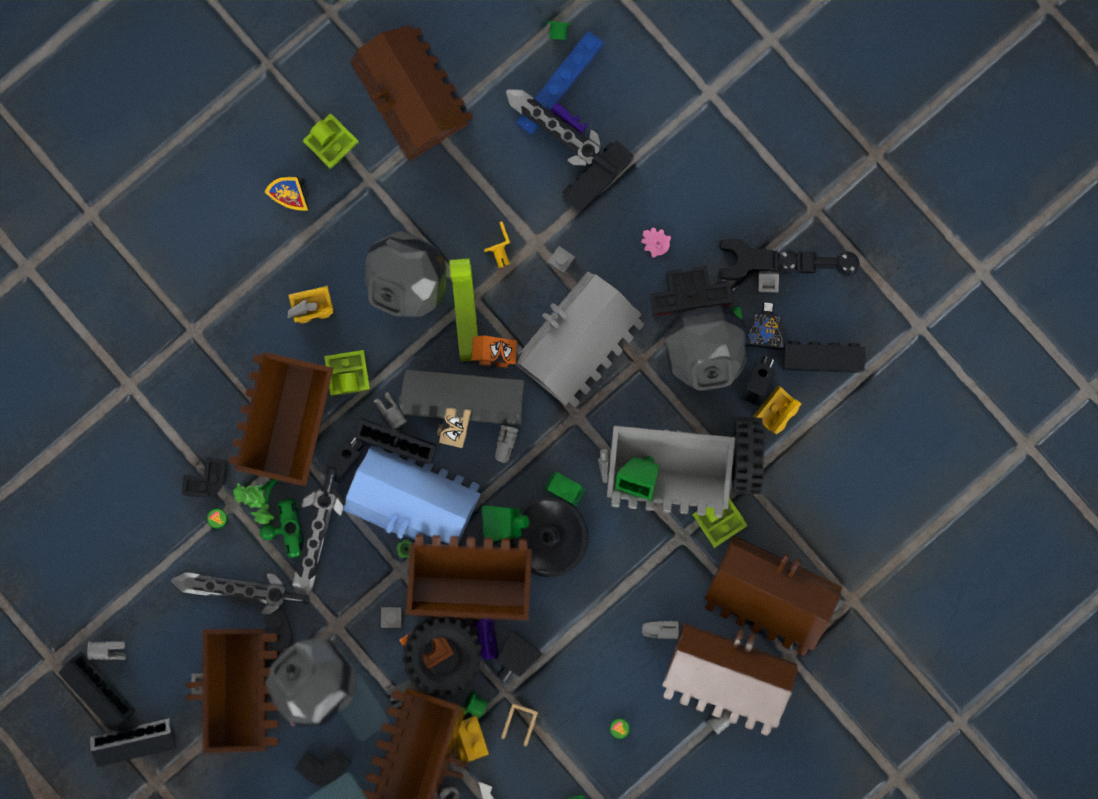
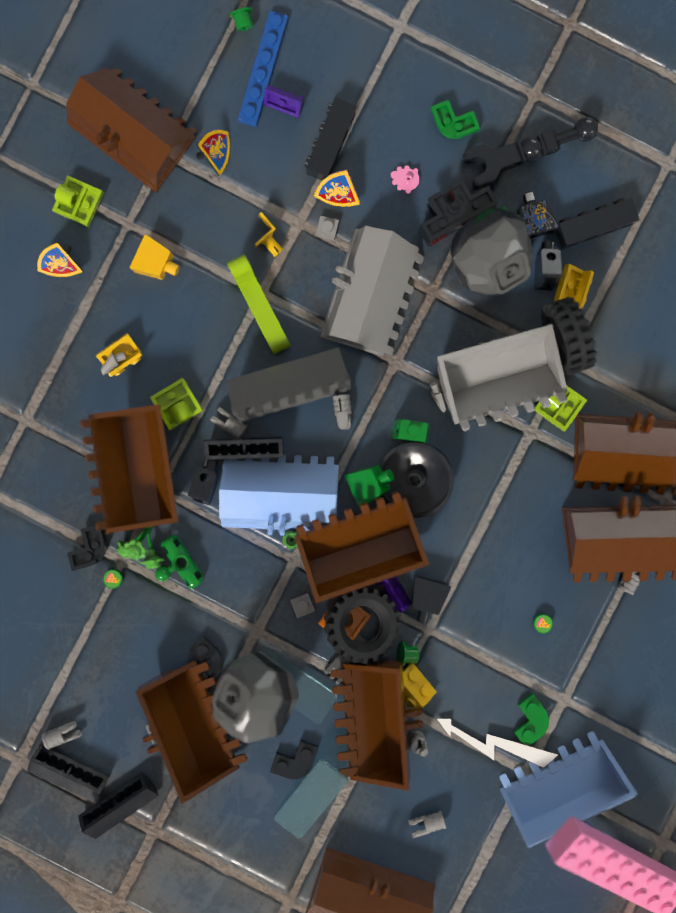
camera: 20 degrees left, 5 degrees up
(241, 590) = (161, 633): sword -> none
(316, 530) = (201, 529): sword -> none
(378, 222) = (153, 260): none -> yellow torso
(405, 275) = (191, 293): dark grey rock -> none
(453, 429) = (291, 417): tan brick -> none
(482, 144) = (215, 148): none -> shield
(494, 350) = (299, 332): orange brick -> none
(510, 716) = (453, 641): tan piece -> none
(562, 132) = (294, 112): sword -> none
(585, 228) = (337, 190): none -> shield
(638, 477) = (477, 395): green torso -> none
(661, 629) = (547, 522): light grey hinge -> none
(719, 208) = (452, 126): none -> green plate
(768, 281) = (520, 174): light grey plate -> none

